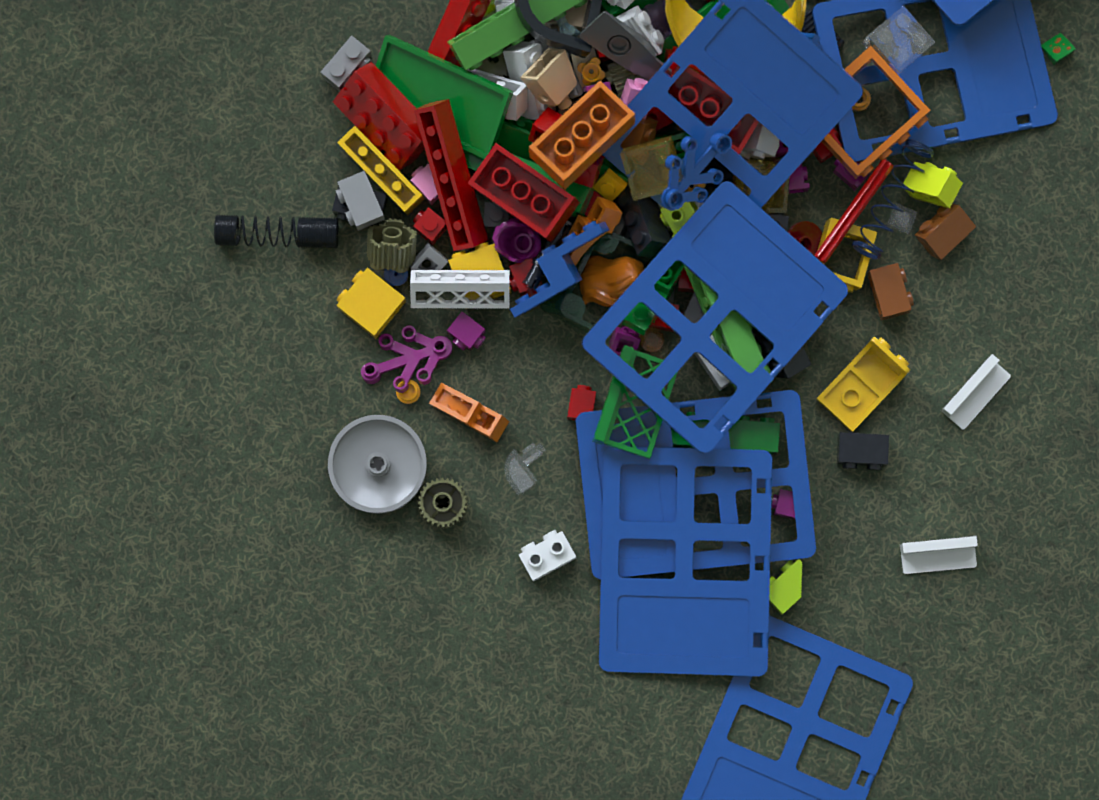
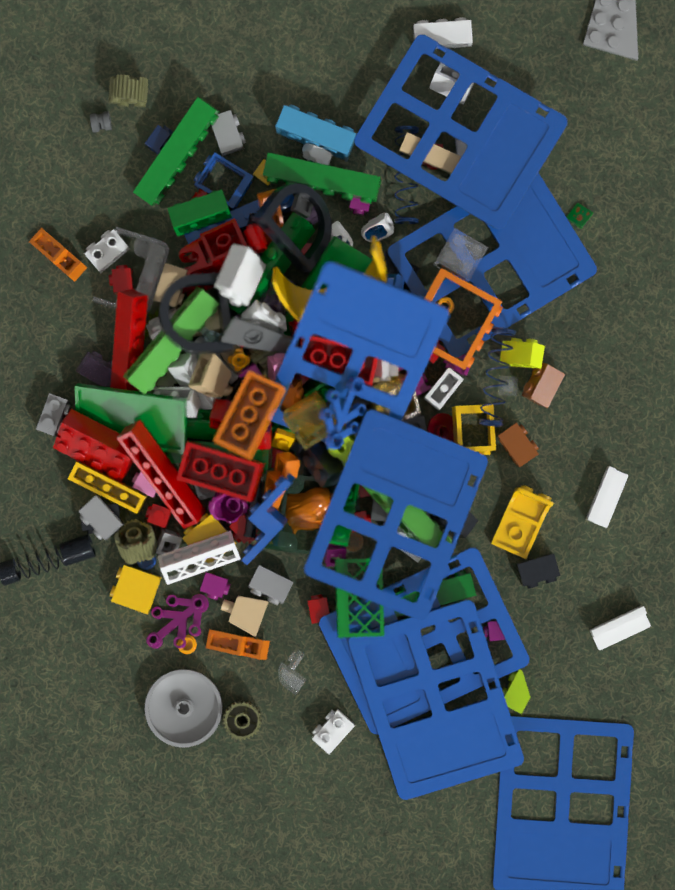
camera: 25 degrees left, 5 degrees up
(415, 27) = (96, 369): none -> clear purple brick
(492, 378) = (246, 613): none -> tan torso
(533, 354) = (270, 585): none -> light grey brick
(823, 194) = (443, 388): none -> white brick
(853, 211) = (471, 396): red axle -> none

